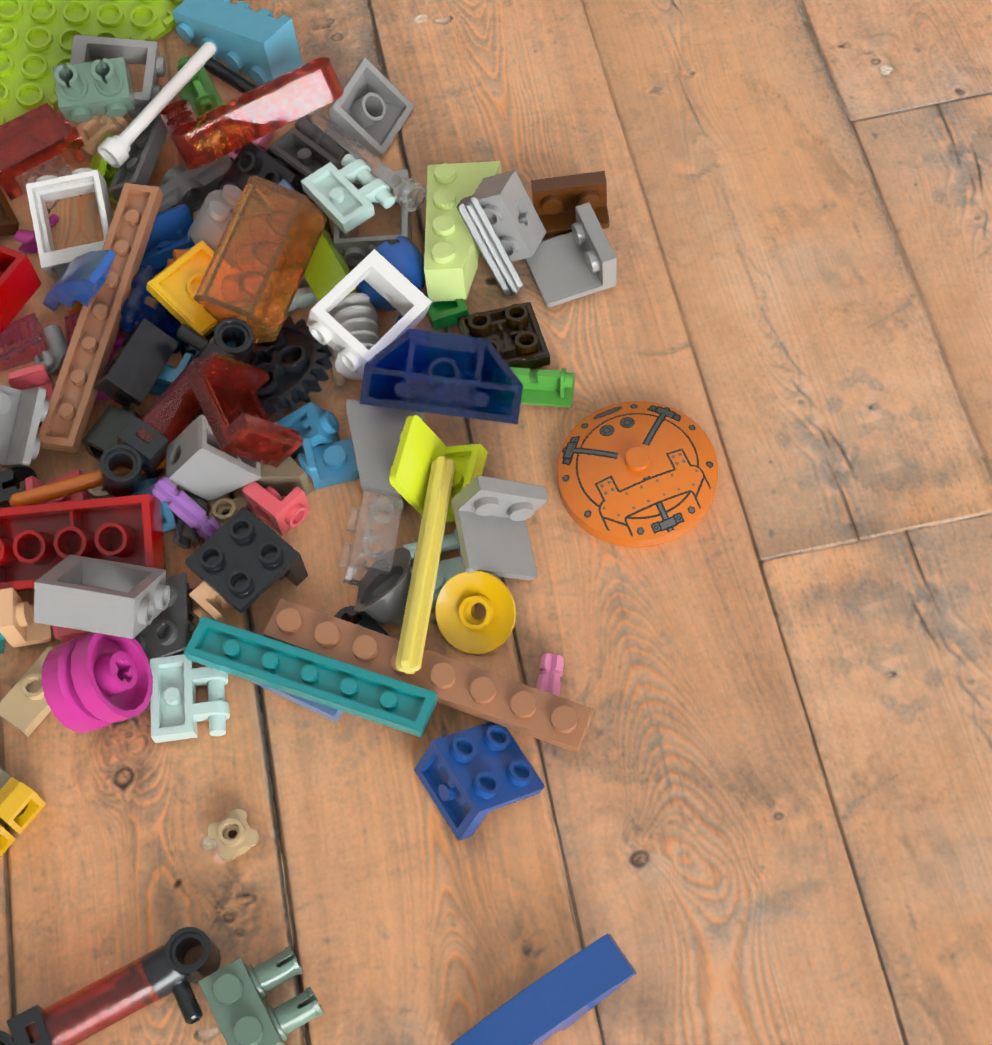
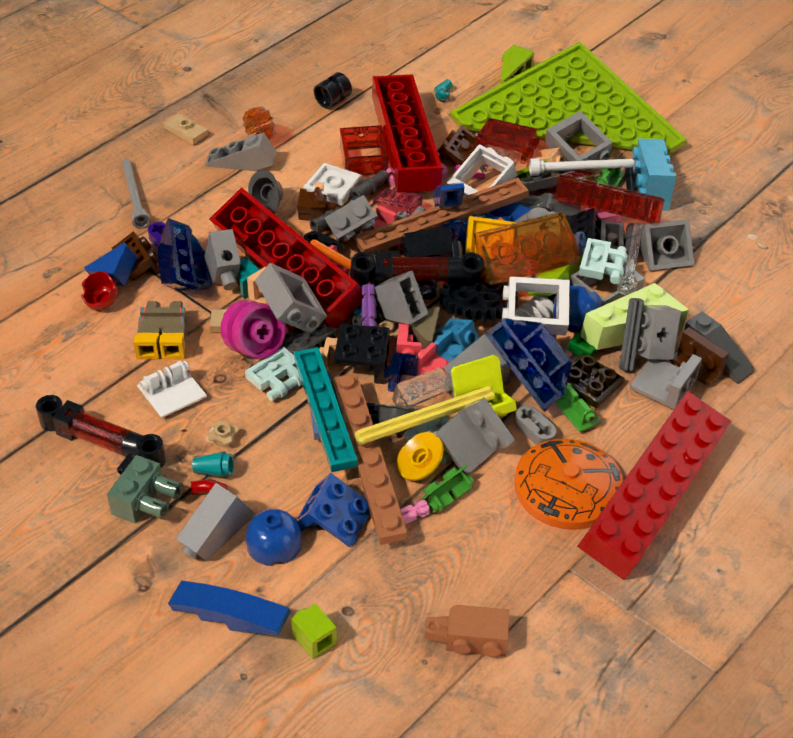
camera: 45 degrees right, 15 degrees down
(94, 89) = (556, 134): sand green brick -> none
(96, 857) = (171, 389): none -> white hinge
(235, 415) = (433, 288): clear red panel -> none
(280, 881) = (215, 464): none -> teal cone
(303, 538) = (400, 365): none -> clear blue bracket
(314, 906) = (204, 486): none -> red arm
(333, 495) = (429, 360): none -> coral bracket
(391, 947) = (214, 523): none -> light grey slope
(463, 879) = (273, 537): none -> blue cylinder
(523, 448) = (538, 425): none -> light grey beam
(542, 599) = (454, 482): none -> bright green hinge
(556, 162) = (737, 364): none -> dark grey slope
(652, 922) = (314, 630): none -> lime brick
(724, 386) = (654, 486): none -> red brick
(783, 729) = (471, 630): none -> nougat hinge

